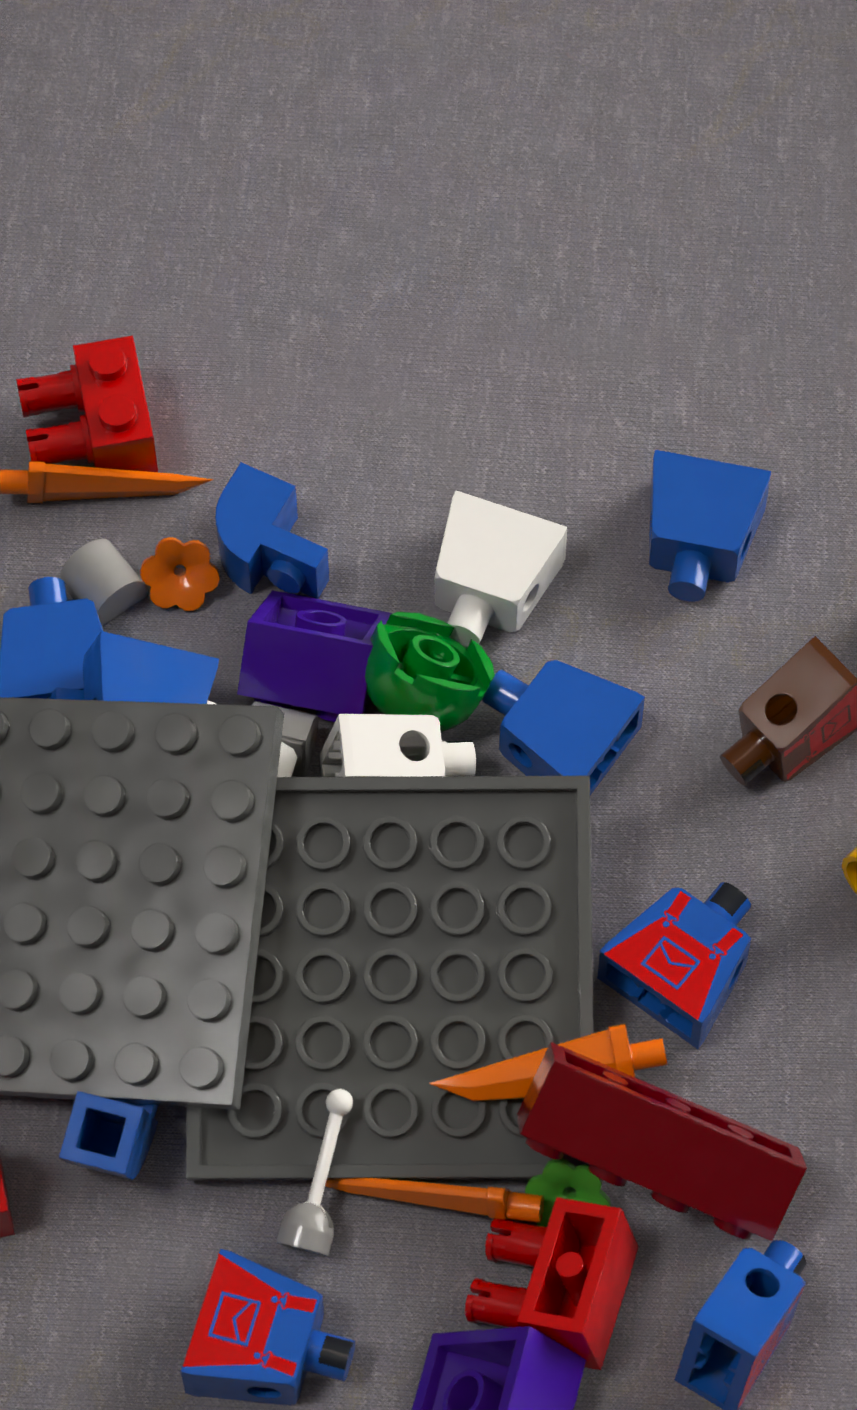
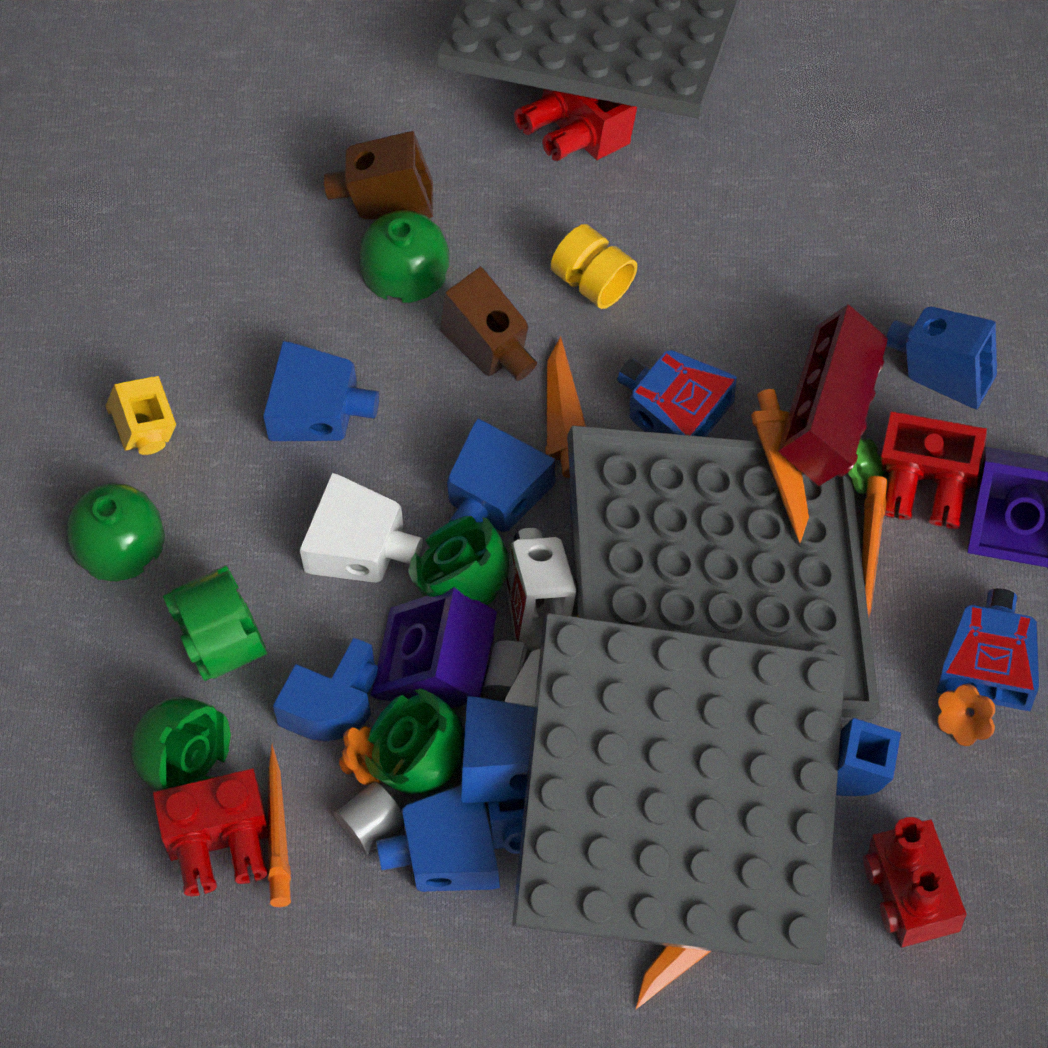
camera: 90 degrees left, 0 degrees up
(173, 1294) = (966, 714): none -> orange plant
(178, 613) = (416, 743): none -> green cylinder
(201, 371) = (179, 742): none -> green cylinder
(308, 1223) = (905, 629): hinge -> none
(360, 404) = (215, 623): none -> green brick
(514, 309) = (114, 532): none -> green cylinder
(660, 826) = (562, 406): none -> orange bar
(684, 308) = (143, 403): none -> yellow brick

